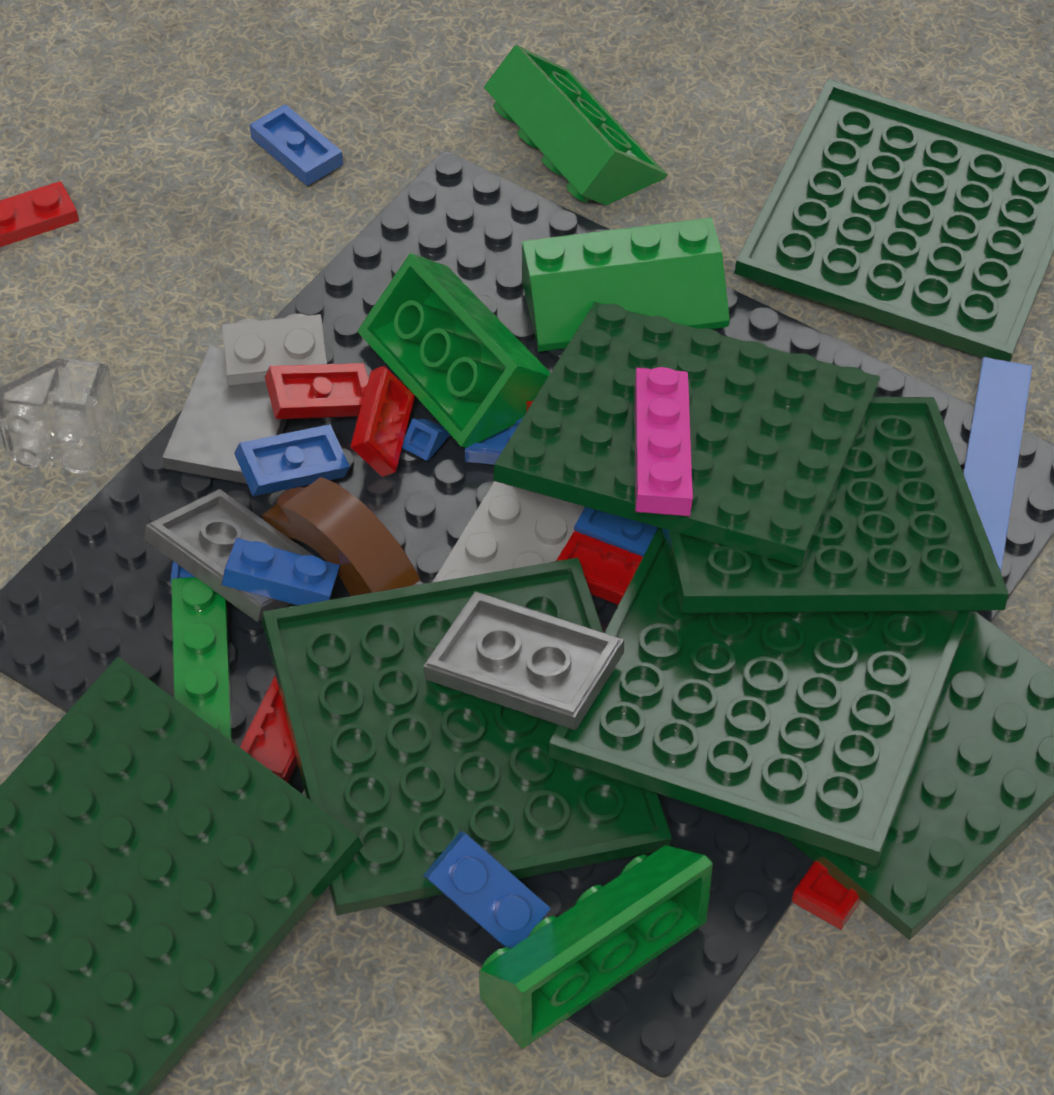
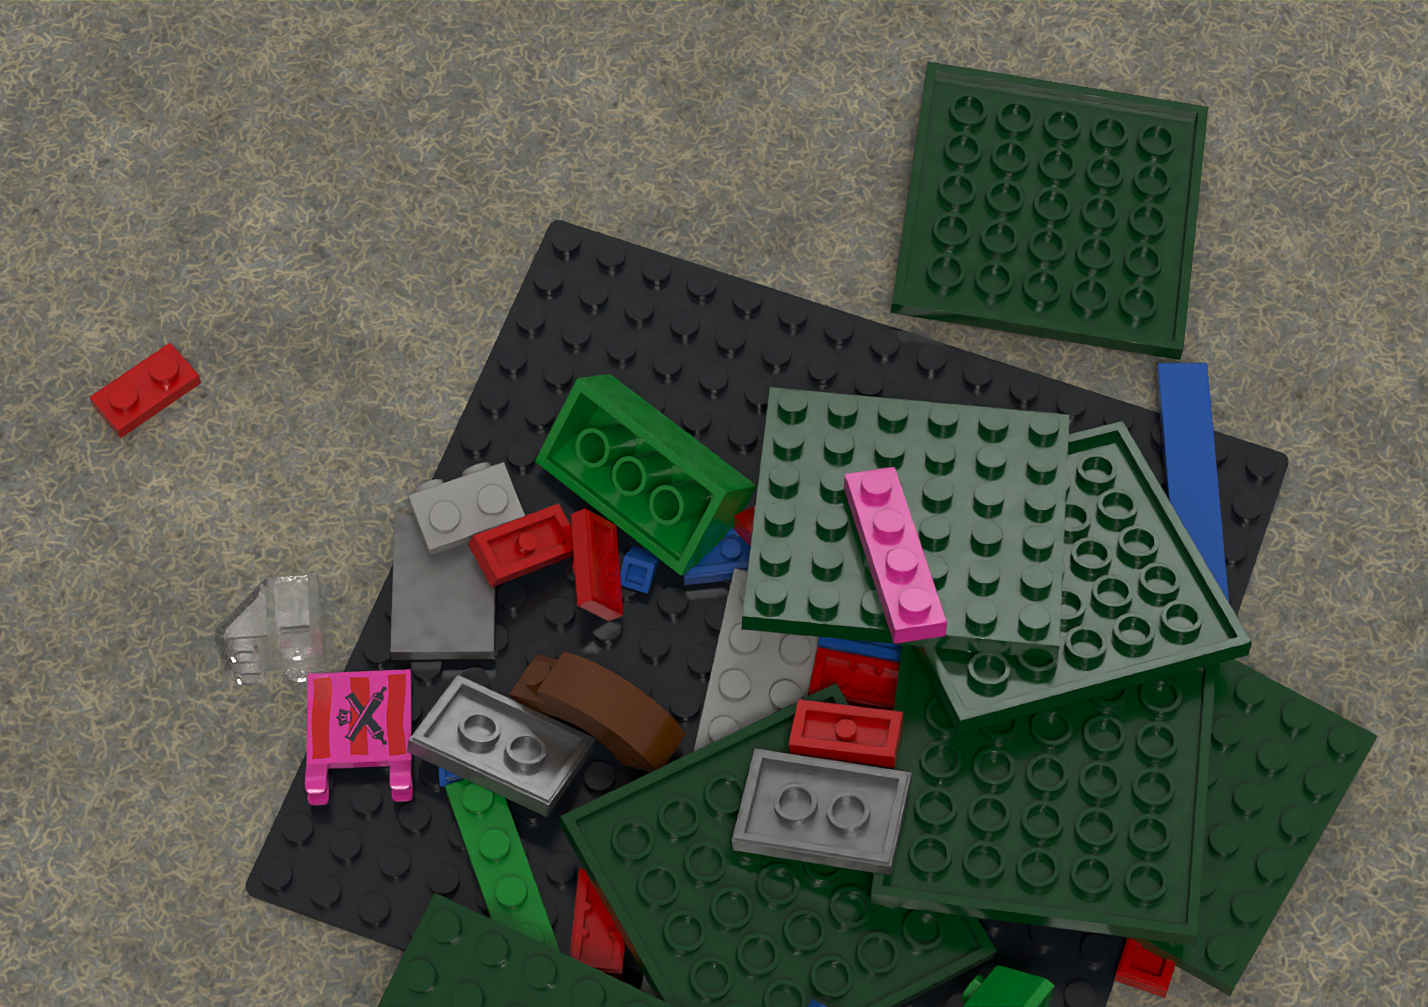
camera: 15 degrees left, 10 degrees up
(108, 513) = (359, 723): none -> flag
(279, 573) = (556, 764): blue plate -> none
(291, 459) = (522, 630): plate -> none
(296, 144) = (401, 247): blue plate -> none
(570, 129) = (680, 170): green slope -> none
(571, 595) = (846, 733): none -> red plate
(646, 269) = (810, 340): green slope -> none

